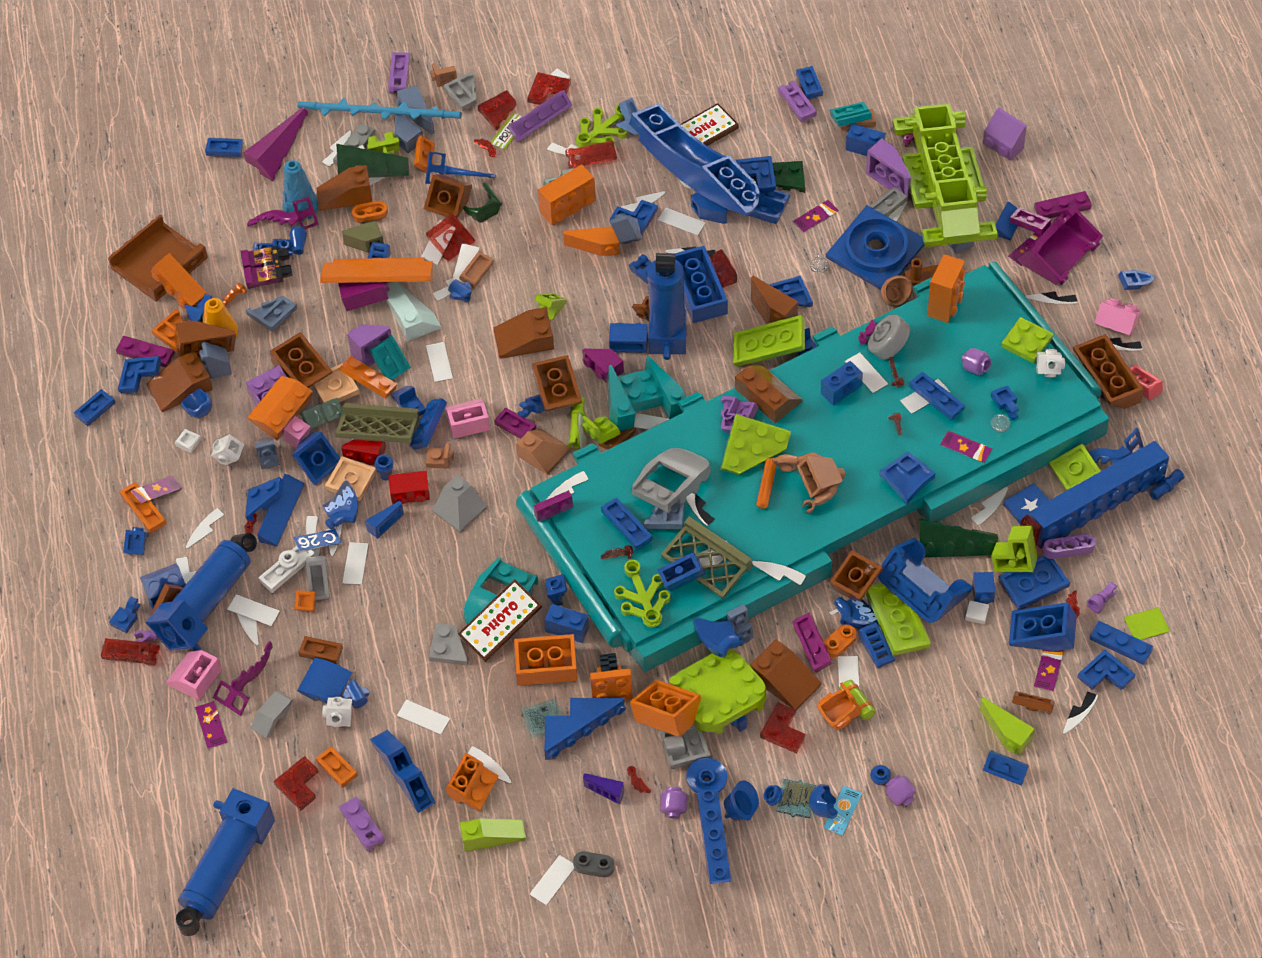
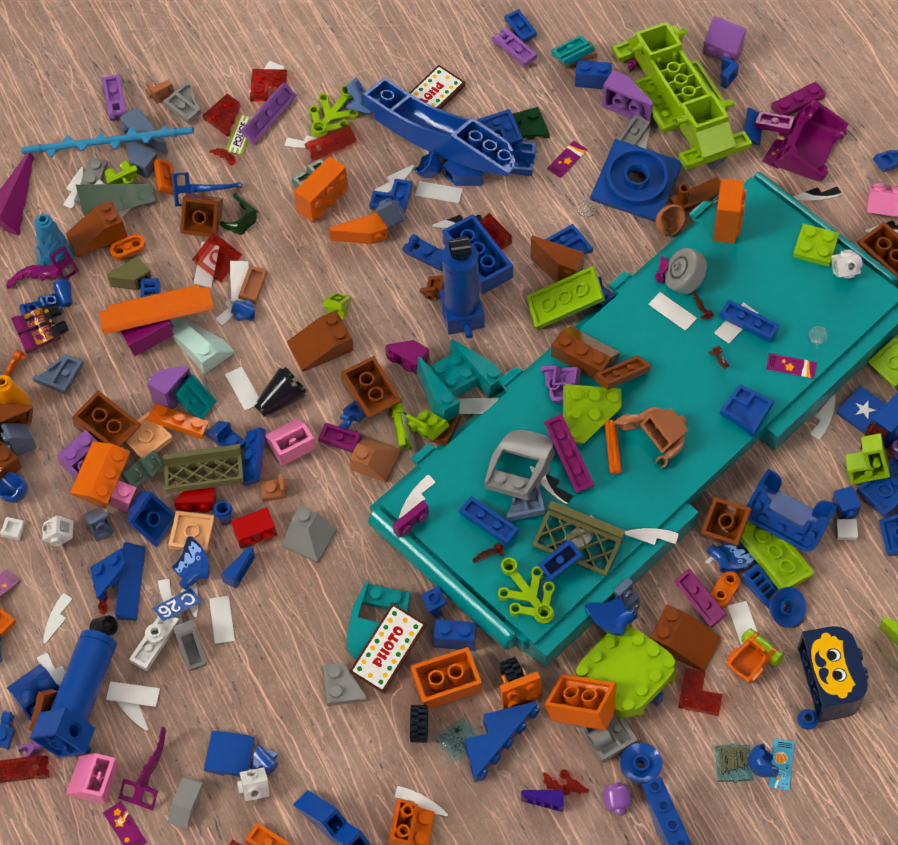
camera: 15 degrees left, 5 degrees up
(305, 600) = (183, 672): orange tile -> none
(320, 649) = (214, 720): dark orange plate -> none
(423, 716) = (339, 766): white sticker -> none
(470, 371) = (279, 393): none -> black cone
(507, 693) = (419, 723): none -> black bush
(616, 775) = (552, 784): none -> clear red piece
(628, 337) = (425, 323): blue brick -> none
(678, 195) = (429, 165): none -> blue hair
(721, 479) = (569, 453): none -> magenta plate
(741, 802) = (683, 782): blue piece -> none
(773, 795) = (707, 766): blue plate -> none
(796, 416) = (622, 372): none -> dark orange plate
(841, 382) = (654, 328): blue brick -> none
(900, 791) = (833, 731): medium lavender head -> none
(902, 668) = (794, 610): none -> blue dish
(918, 735) = (833, 671): none -> dark blue brick
(954, 540) = (806, 462): dark green wing -> none
(976, 361) = (776, 277): medium lavender head -> none
(1001, 165) = (729, 72): none -> blue bracket
(1006, 399) = (815, 309): blue plate -> none

